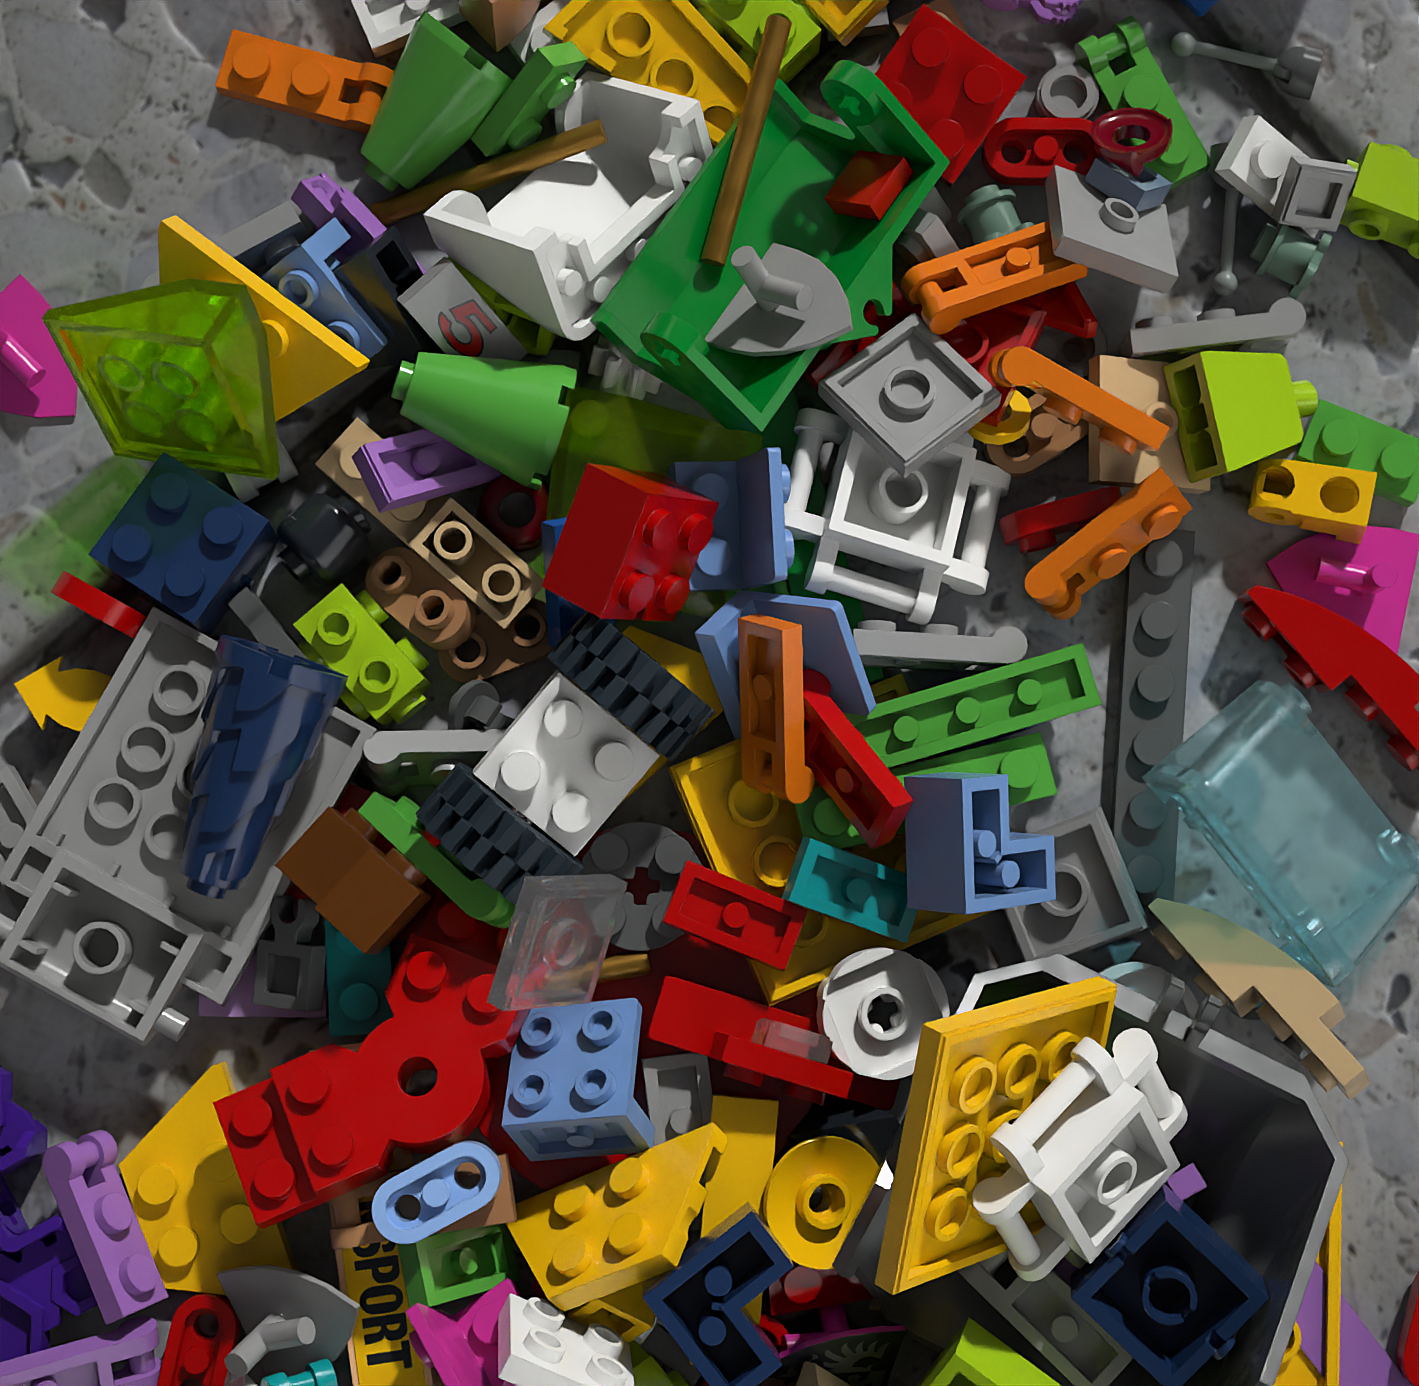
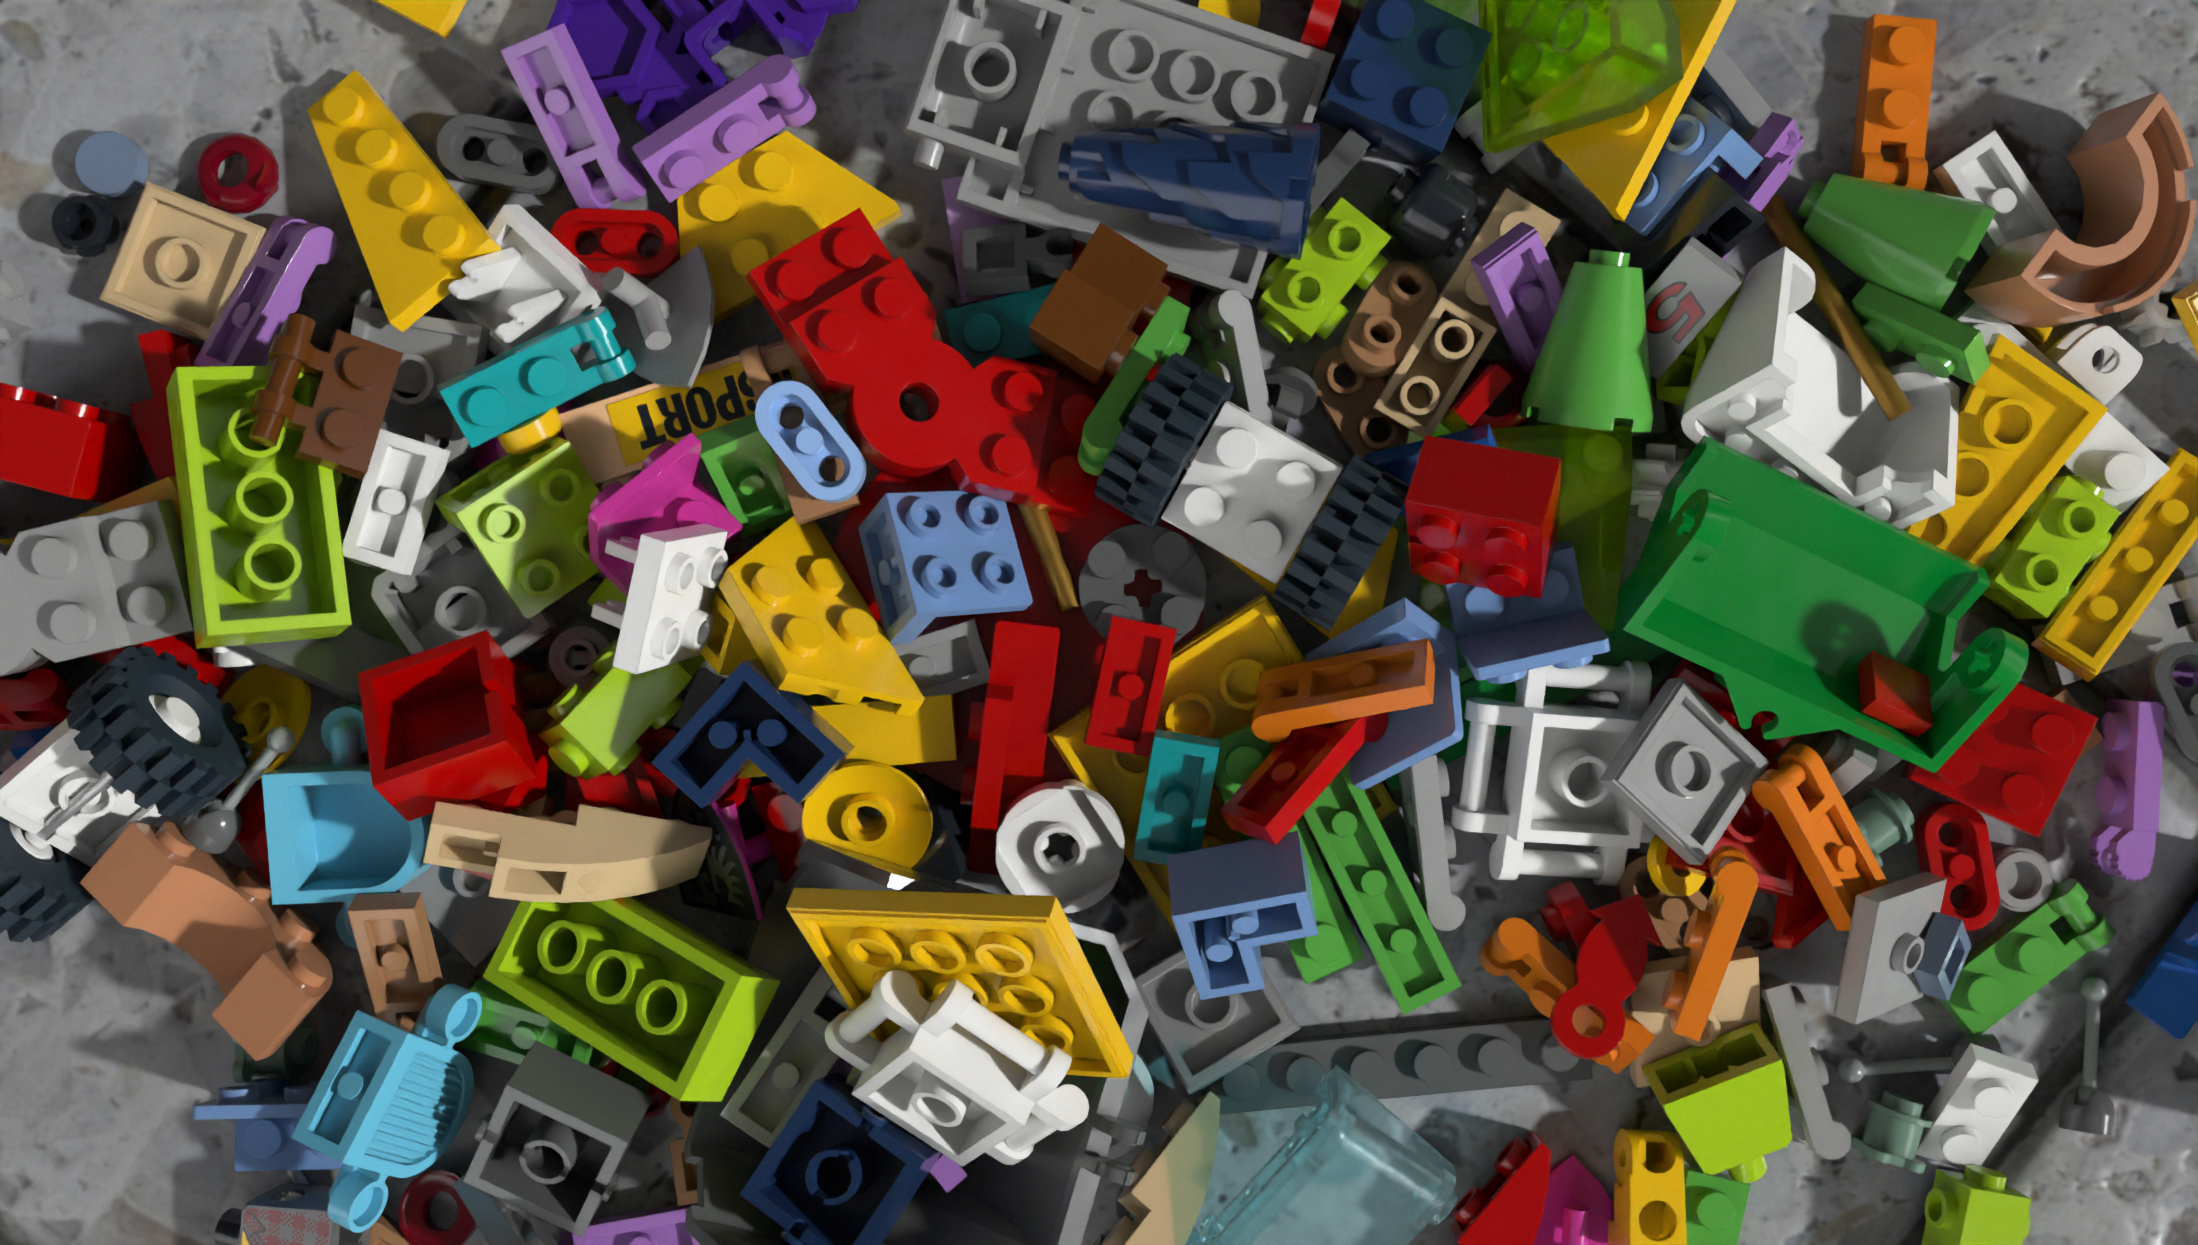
camera: 70 degrees right, 5 degrees up
(514, 529) = (1476, 398): none -> red tile
(557, 941) = (1074, 514): clear tile -> none
(746, 141) = (1919, 561): pearl gold bar -> none
(783, 305) = (1755, 628): light grey shield -> none
(792, 1040) = (1018, 763): clear tile -> none
(1093, 503) = (1605, 975): none -> red brick
(1131, 123) = (2003, 950): dark red piece -> none
(1314, 193) = (1965, 1148): light grey tile -> none

